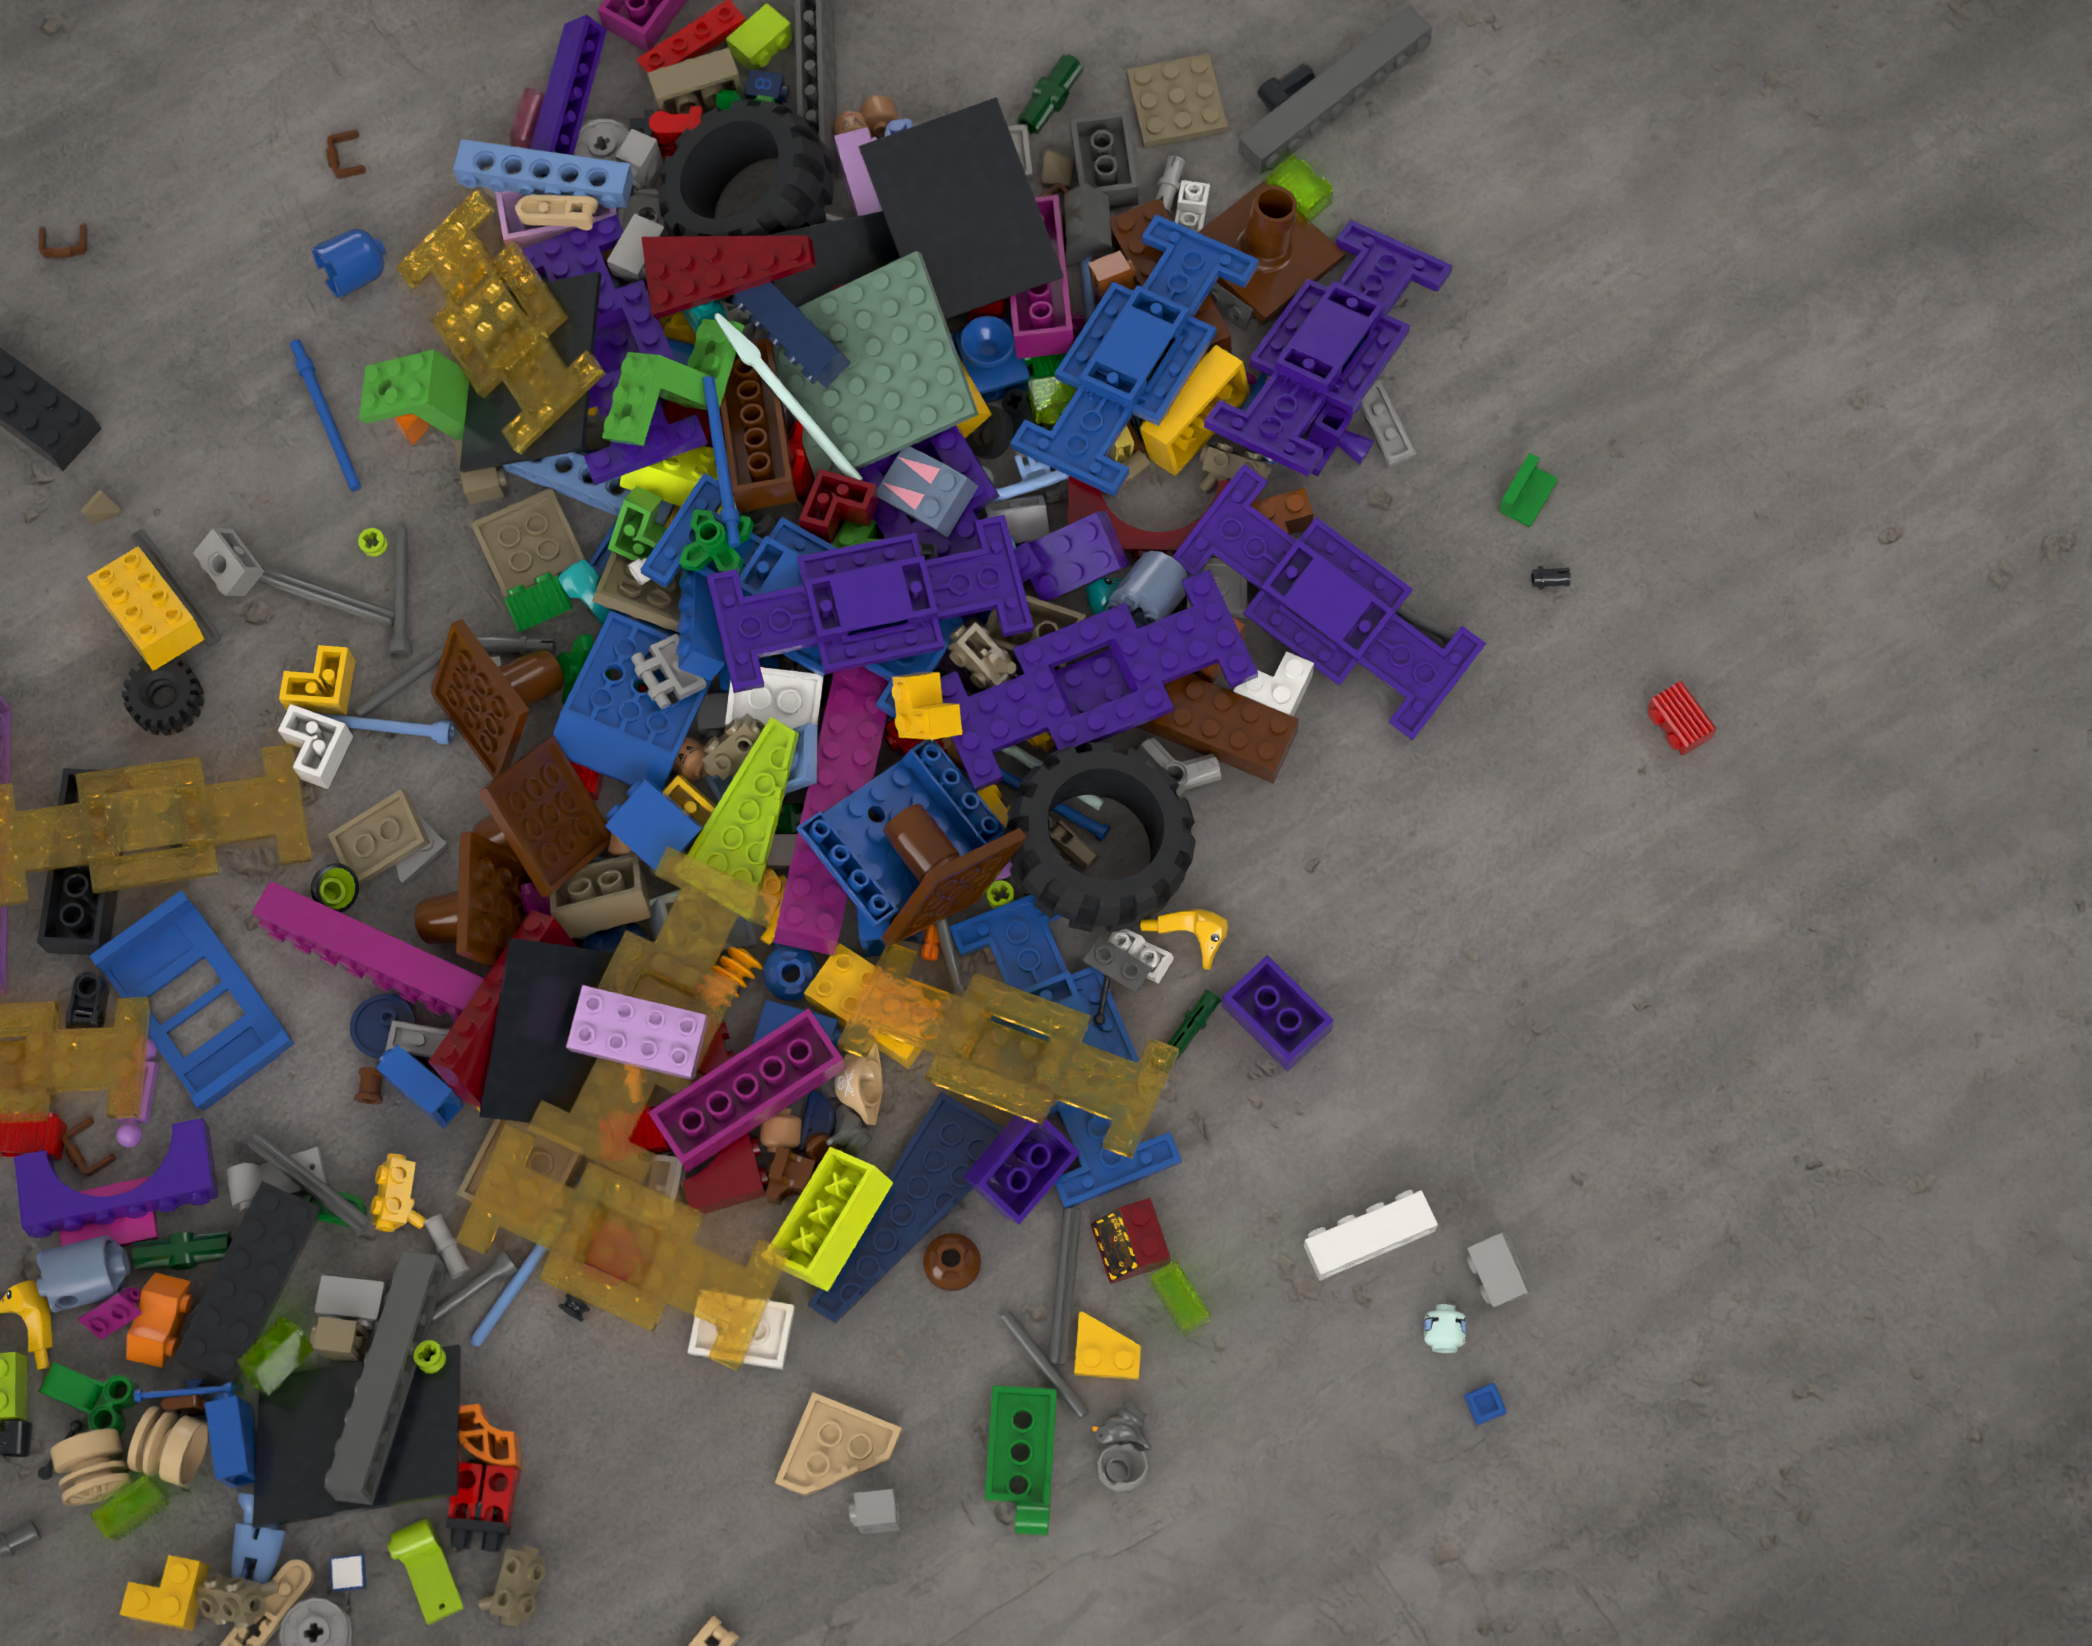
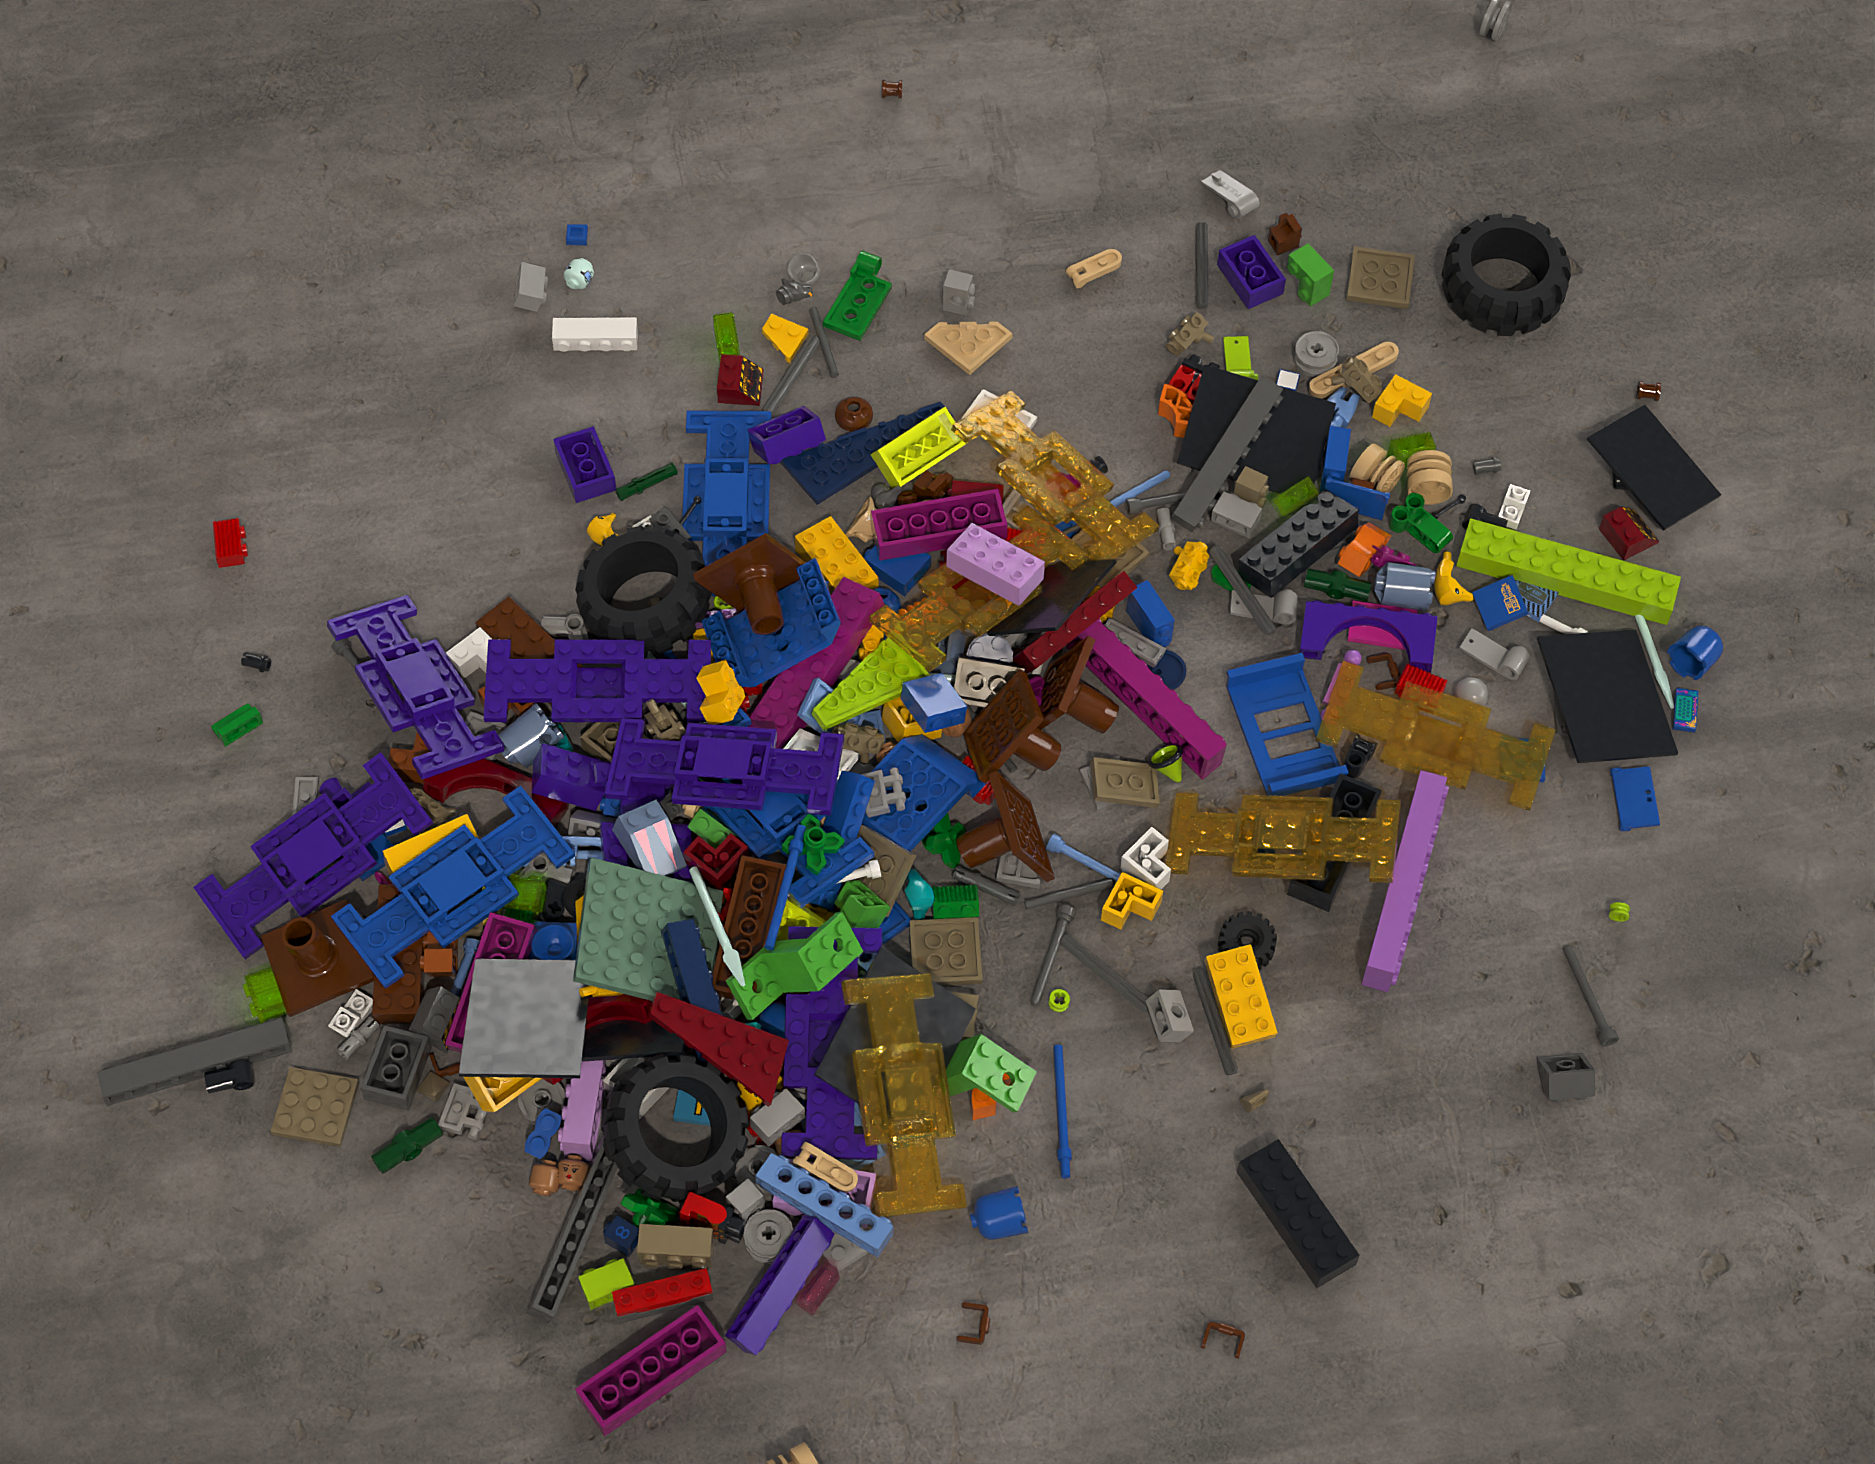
camera: 165 degrees left, 10 degrees down
(369, 1086) = (1183, 637): reddish brown bush -> none
(436, 1361) = (1193, 452): lime bush -> none
(1003, 1063) = (755, 491): clear yellow piece -> none

